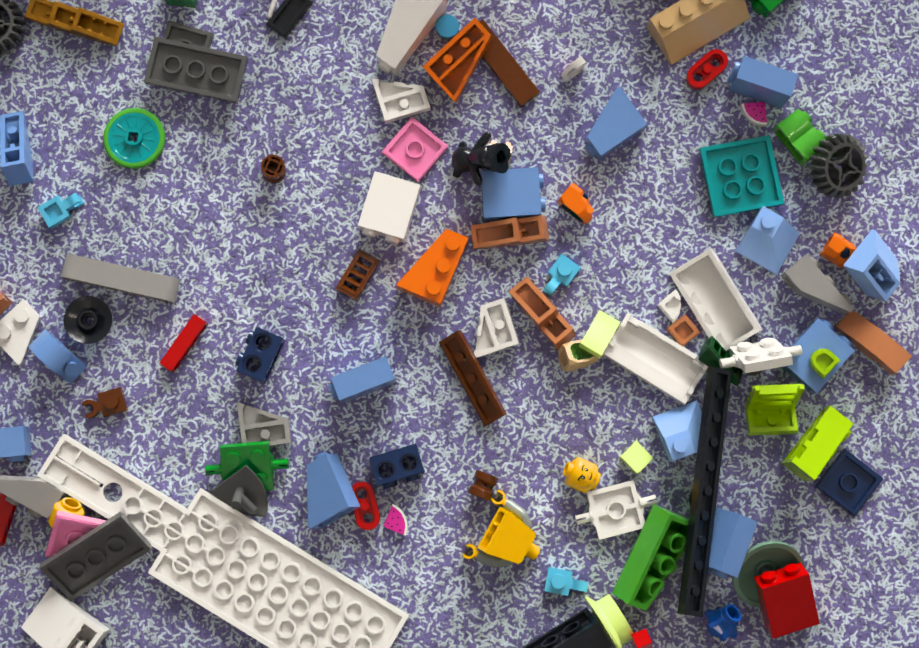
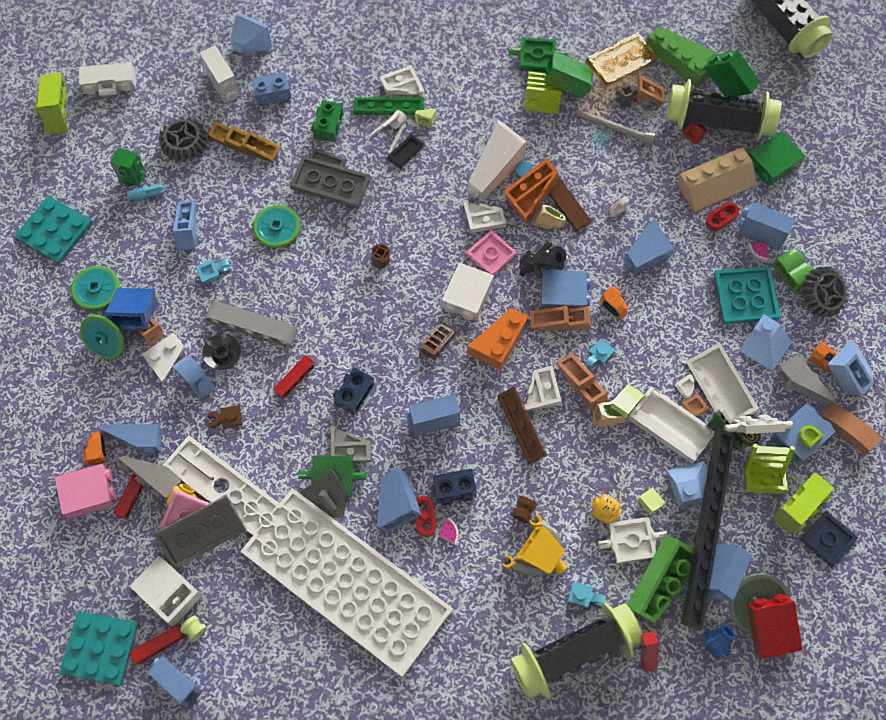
camera: 10 degrees right, 15 degrees down
(484, 93) = (548, 217): none -> tan rock

